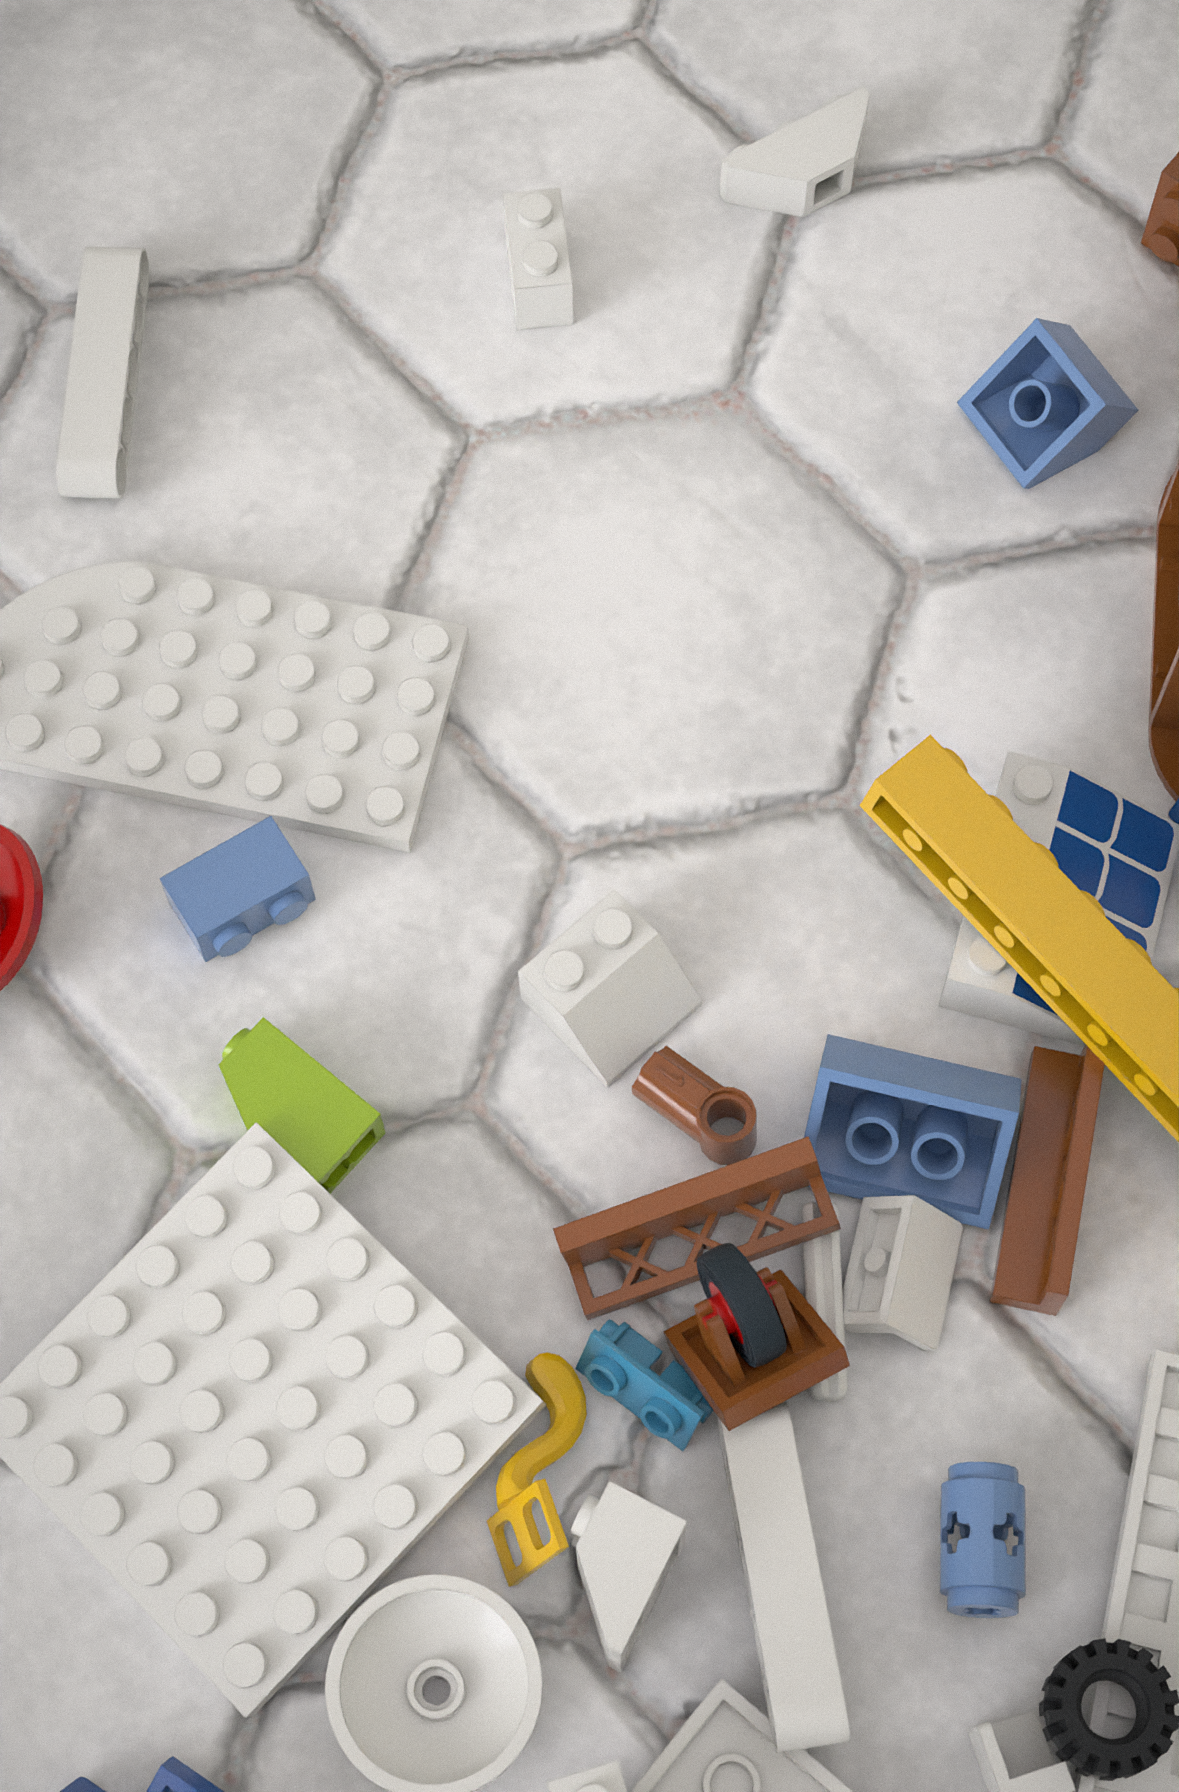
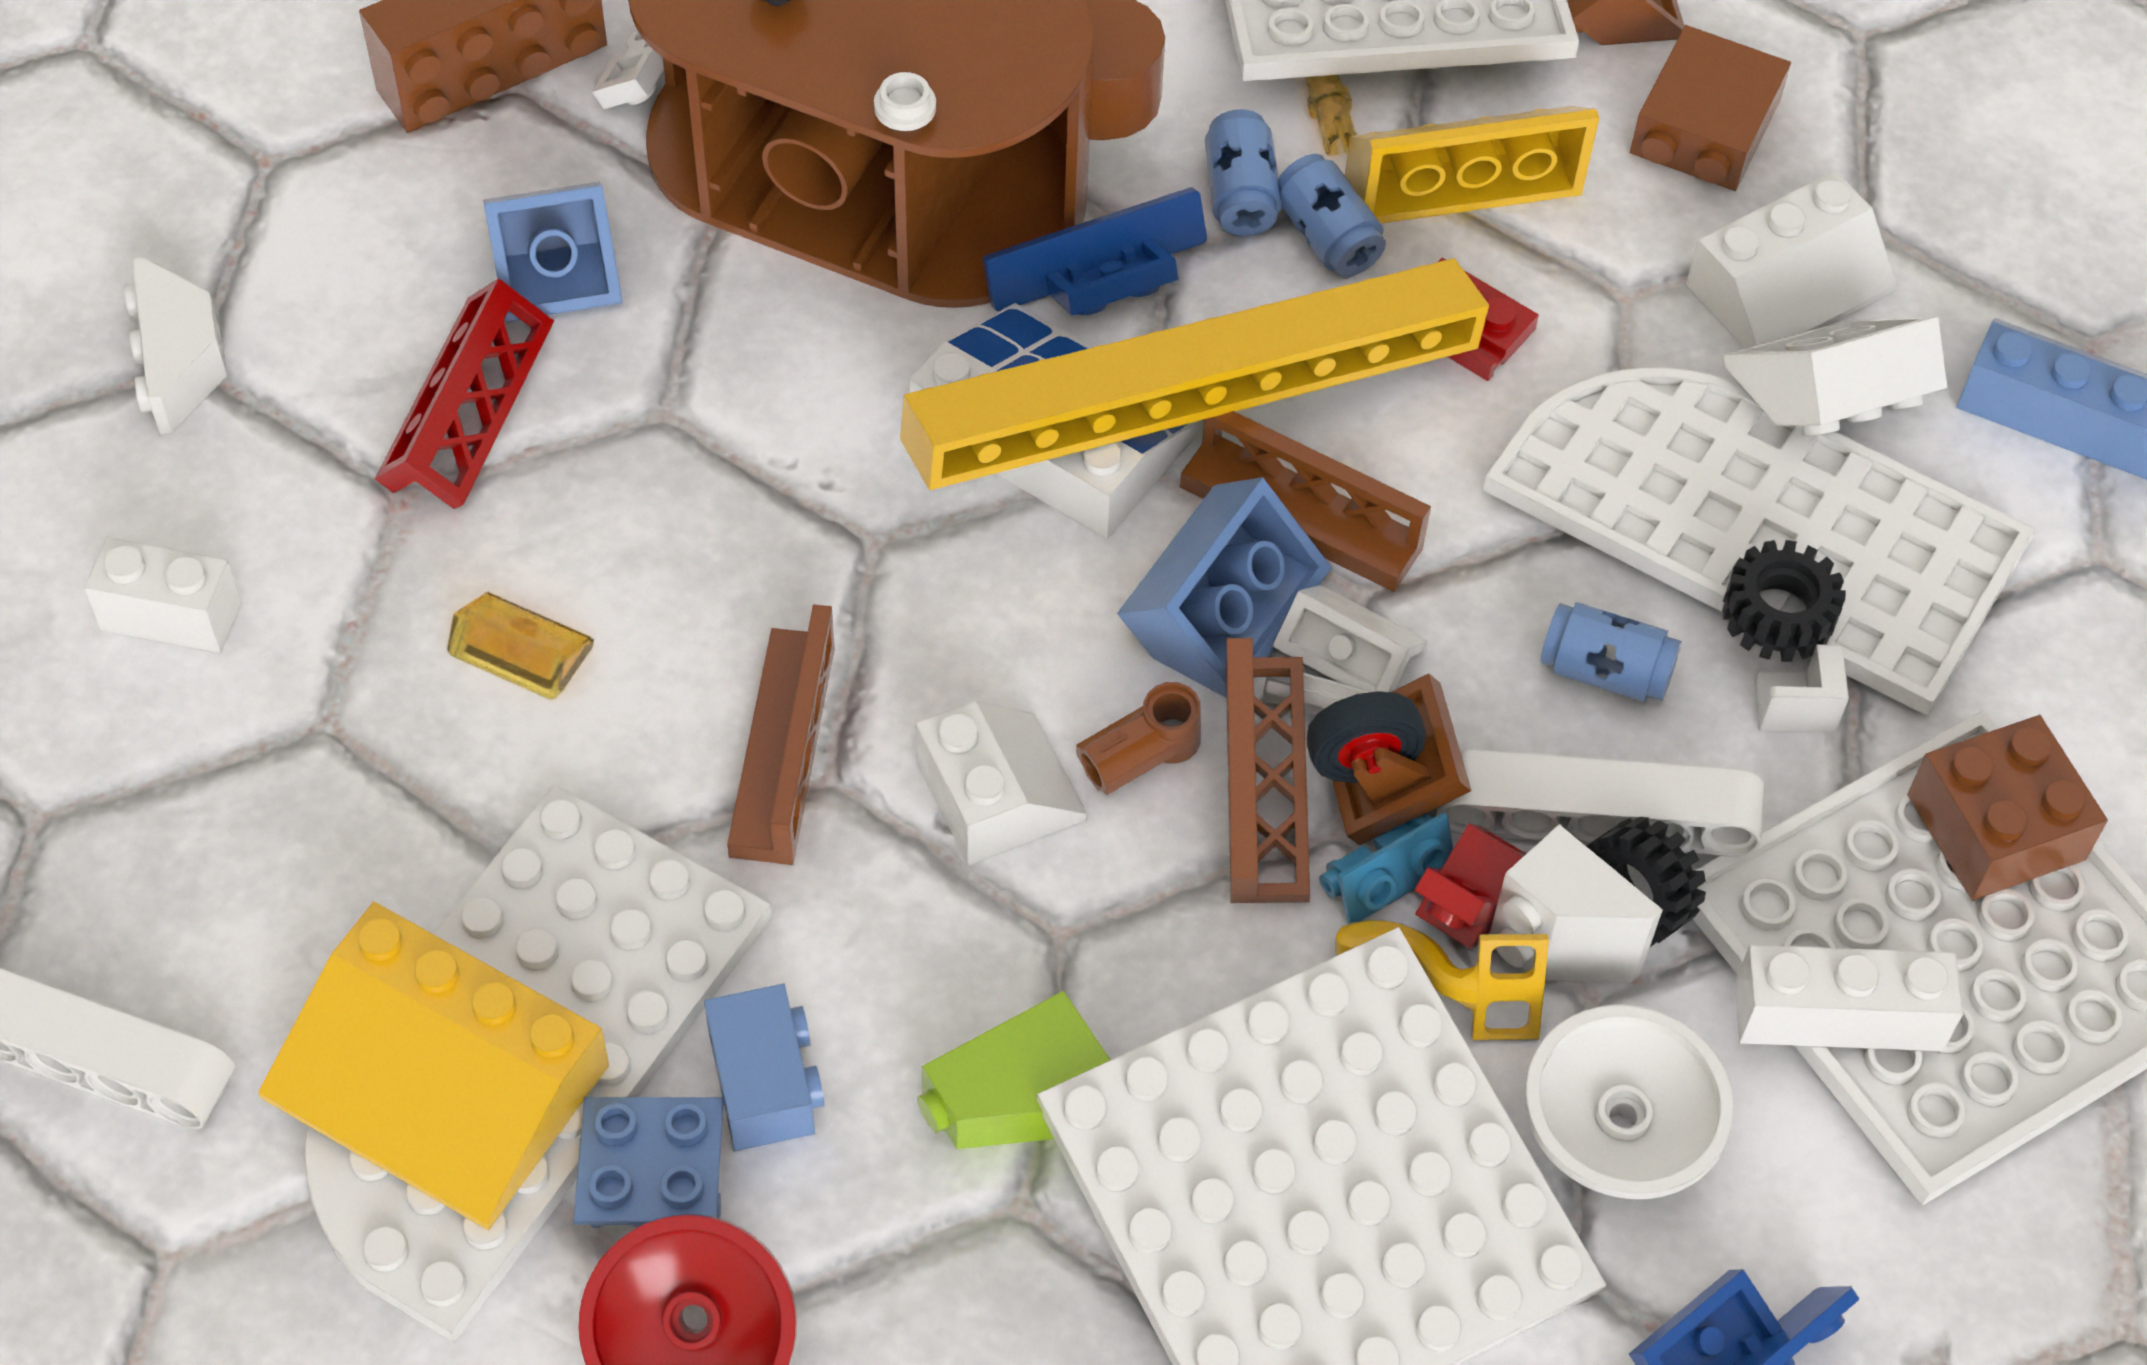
camera: 75 degrees left, 10 degrees down
(112, 833) = (648, 1159): none -> medium blue hinge
(144, 633) = (434, 1065): none -> yellow slope
(586, 795) = (783, 742): none -> dark orange fence
(611, 546) = (517, 644): none -> clear yellow slope
(647, 1463) = (1467, 888): none -> red brick
(690, 1636) = (1661, 864): none -> black tyre
(854, 380) = (446, 389): none -> red fence

